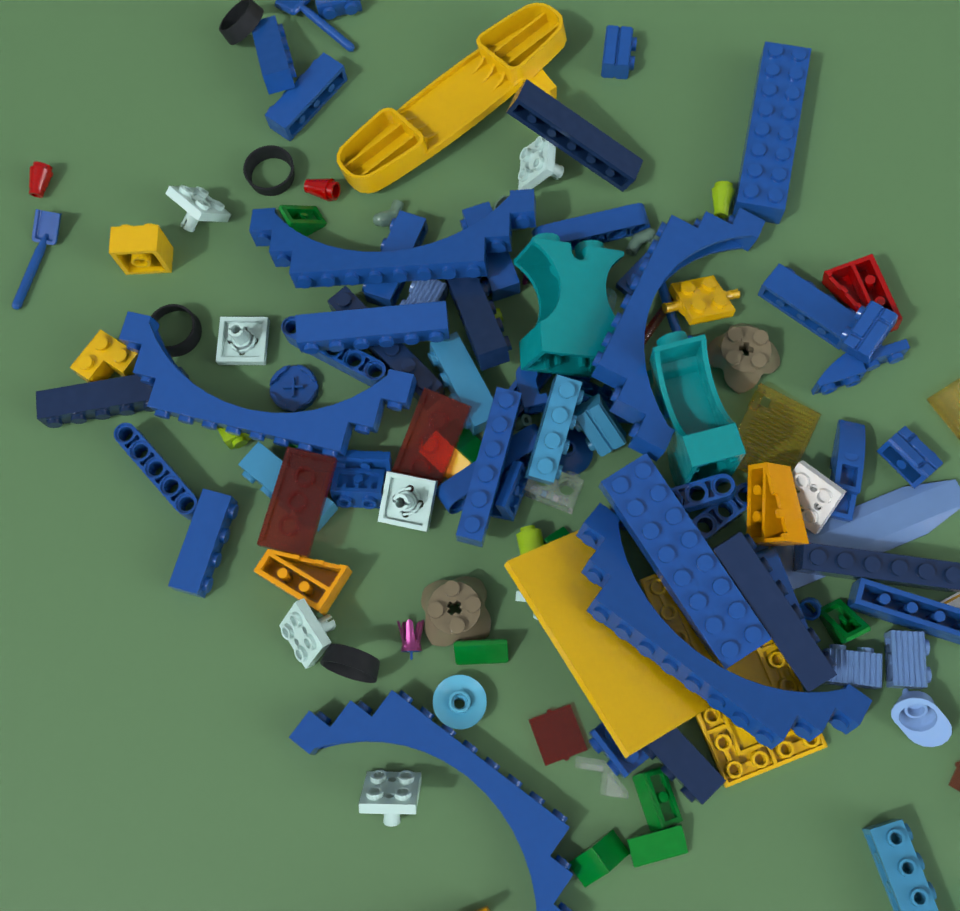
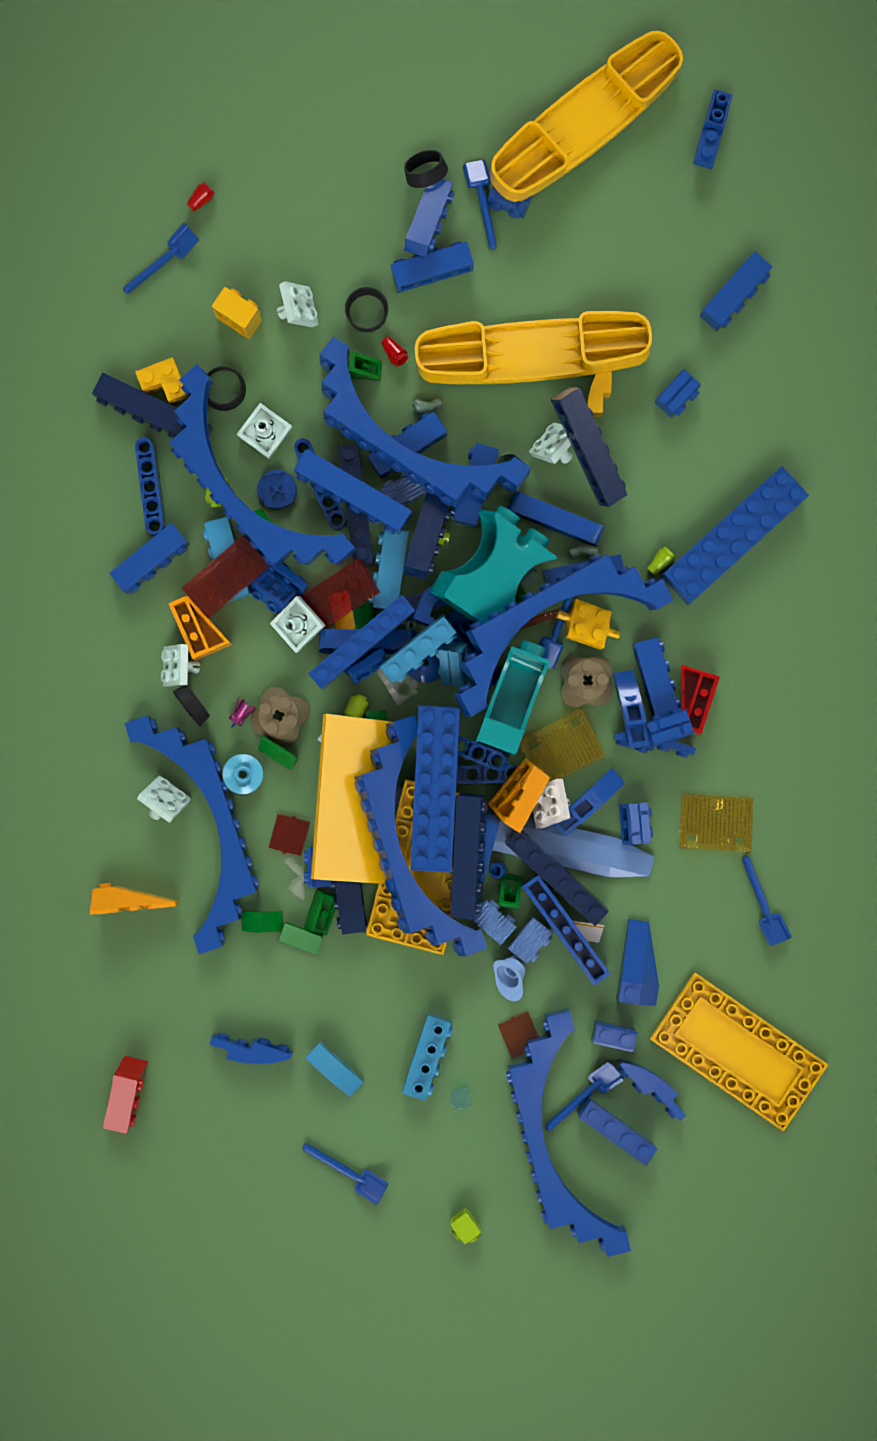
camera: 20 degrees right, 15 degrees up
(813, 343) = (631, 708): none -> blue slope

